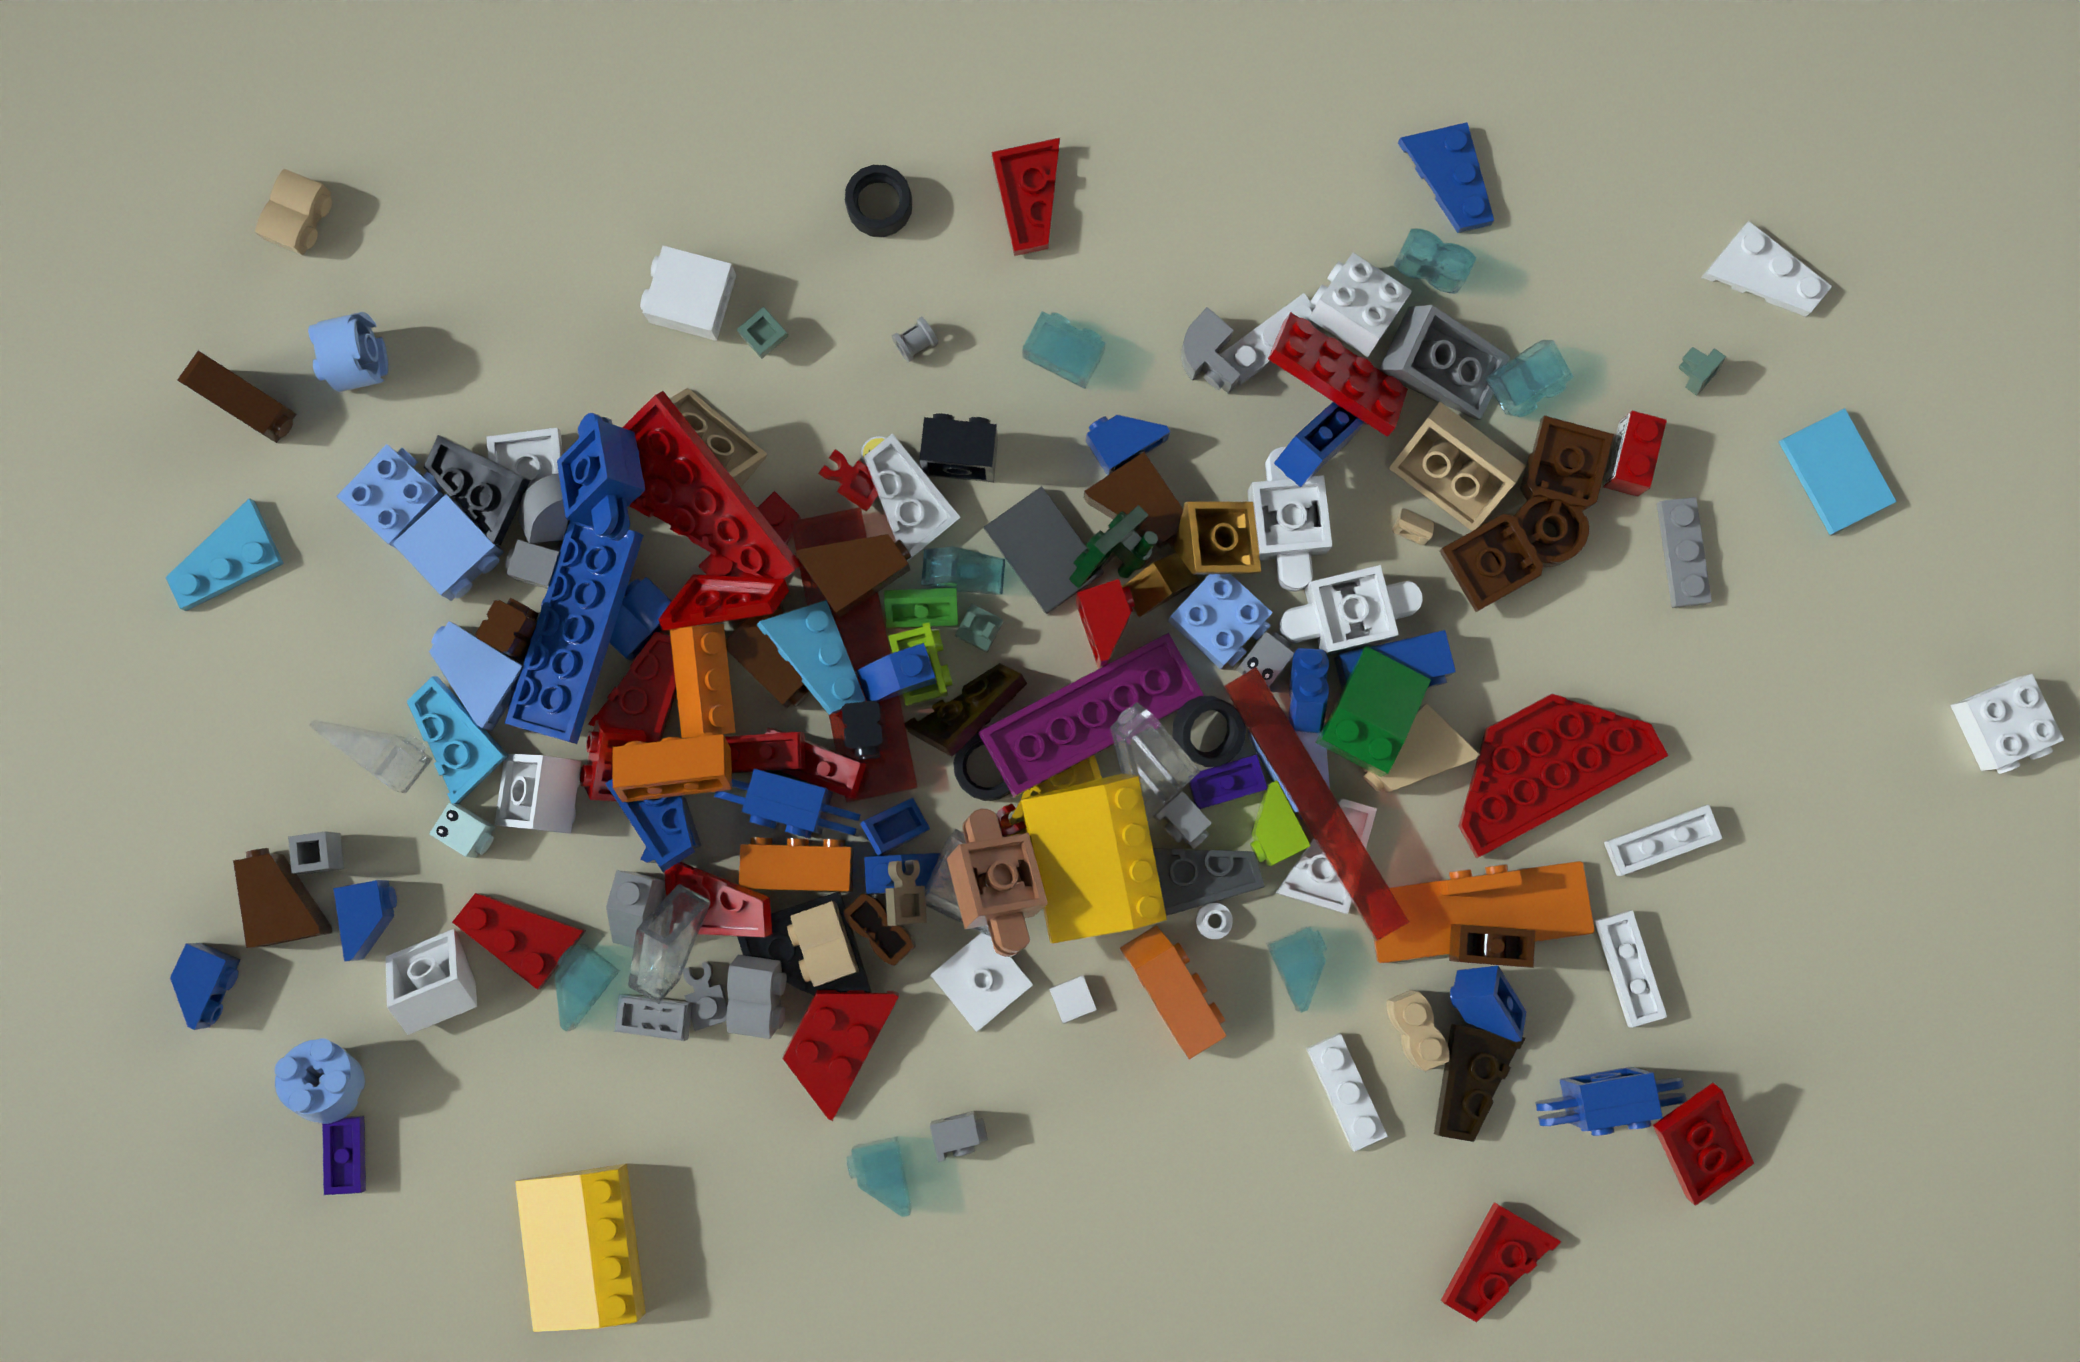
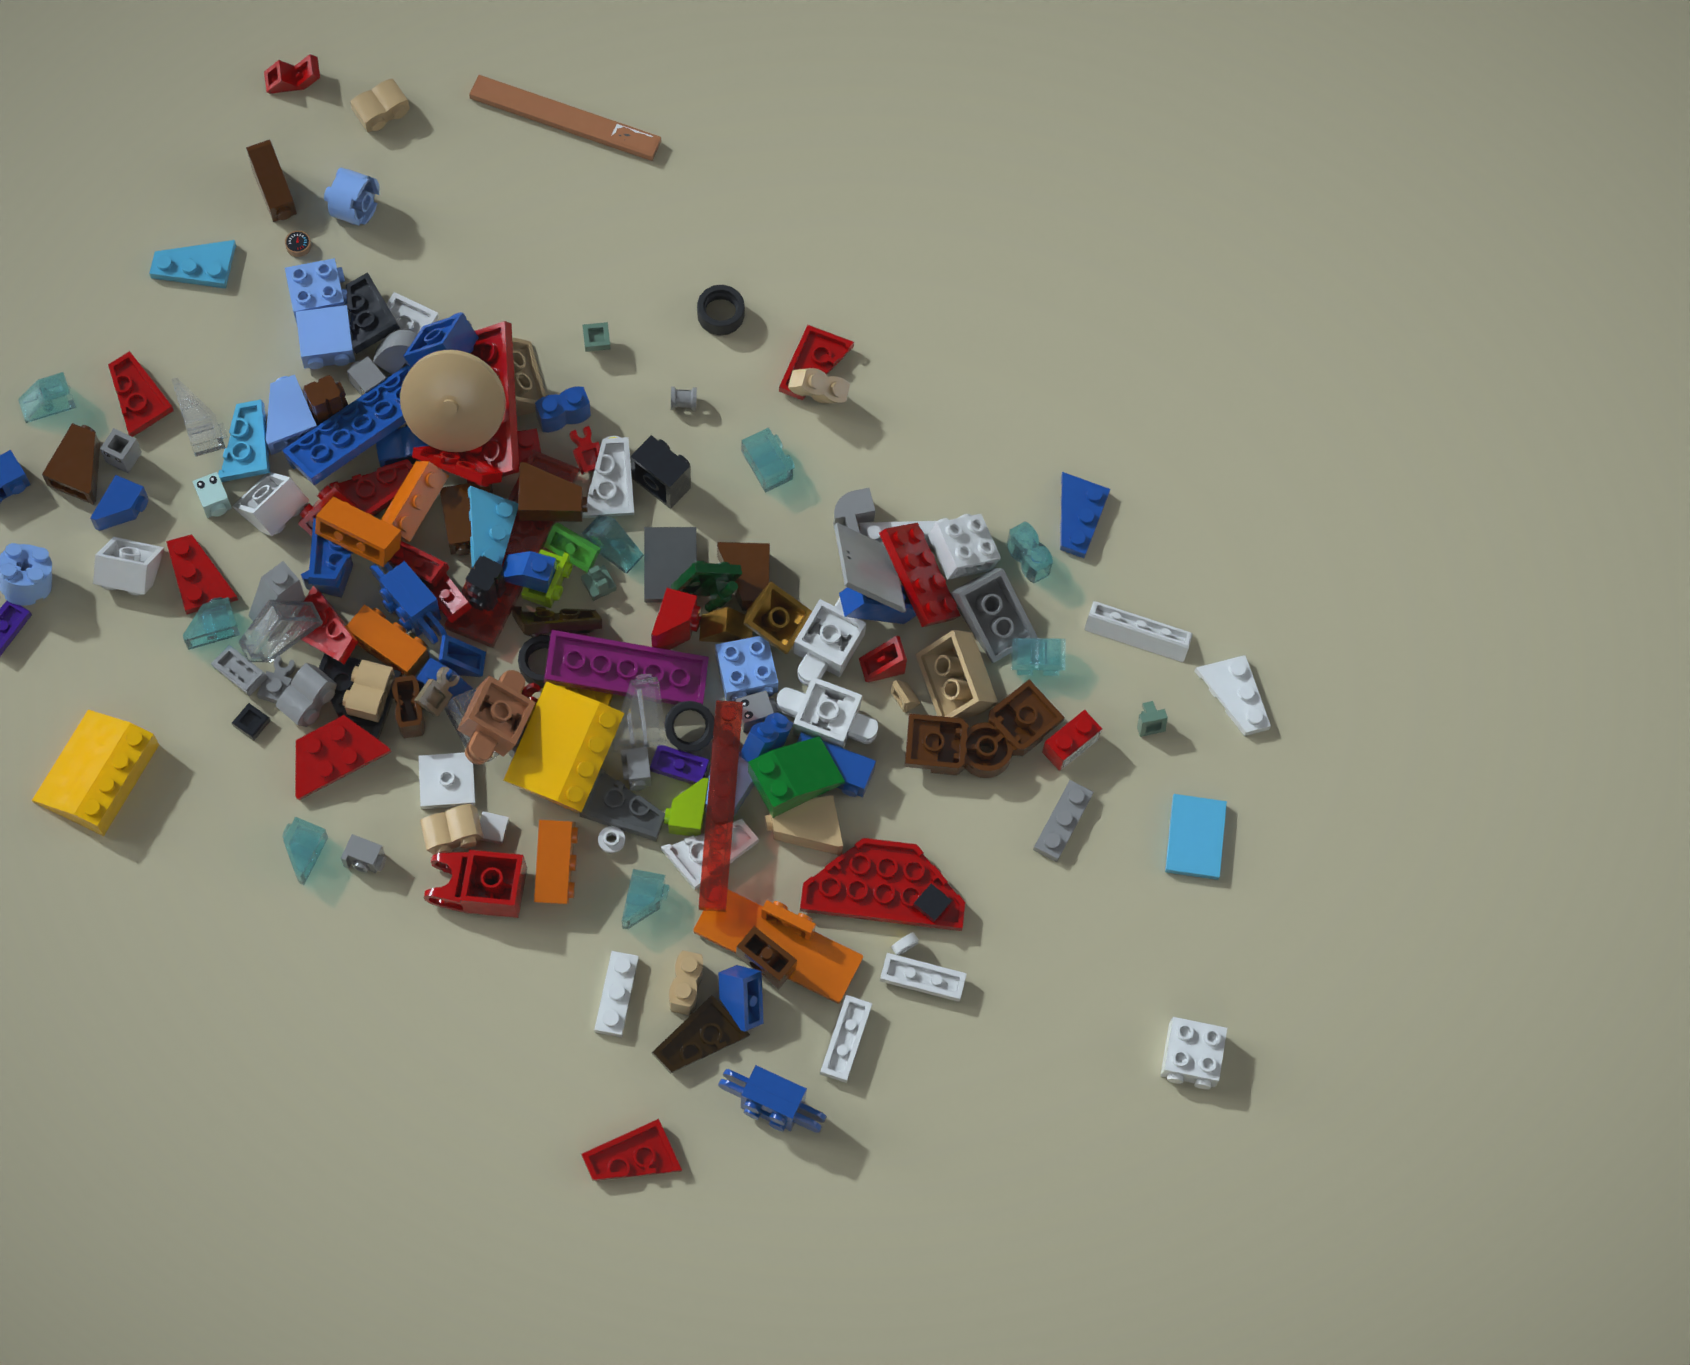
camera: 30 degrees right, 15 degrees down
(156, 250) = (287, 77): none -> red slope
(179, 845) = (46, 398): none -> clear light blue slope
(285, 769) = (138, 395): none -> red wing
(327, 451) = (298, 243): none -> tile
(521, 80) = (565, 117): none -> nougat tile
(666, 535) = (452, 401): none -> tan dish
(688, 292) = (570, 288): white brick -> none
(711, 1065) = (251, 721): none -> black tile
(794, 441) = (558, 410): none -> blue brick
(1034, 1037) = (452, 829): none -> tan brick
(1063, 220) = (819, 386): none -> tan brick
(1101, 1087) = (474, 880): none -> red brick
(1123, 439) = (765, 528): blue slope -> none
(1290, 411) = (868, 568): none -> light grey container
(1365, 502) = (884, 661): none -> red slope
(1612, 272) = (1138, 631): none -> white slope
(1618, 816) = (905, 944): none -> white tile
(1620, 751) = (932, 903): none -> black tile
(1703, 1144) = (811, 1165): red plate -> none

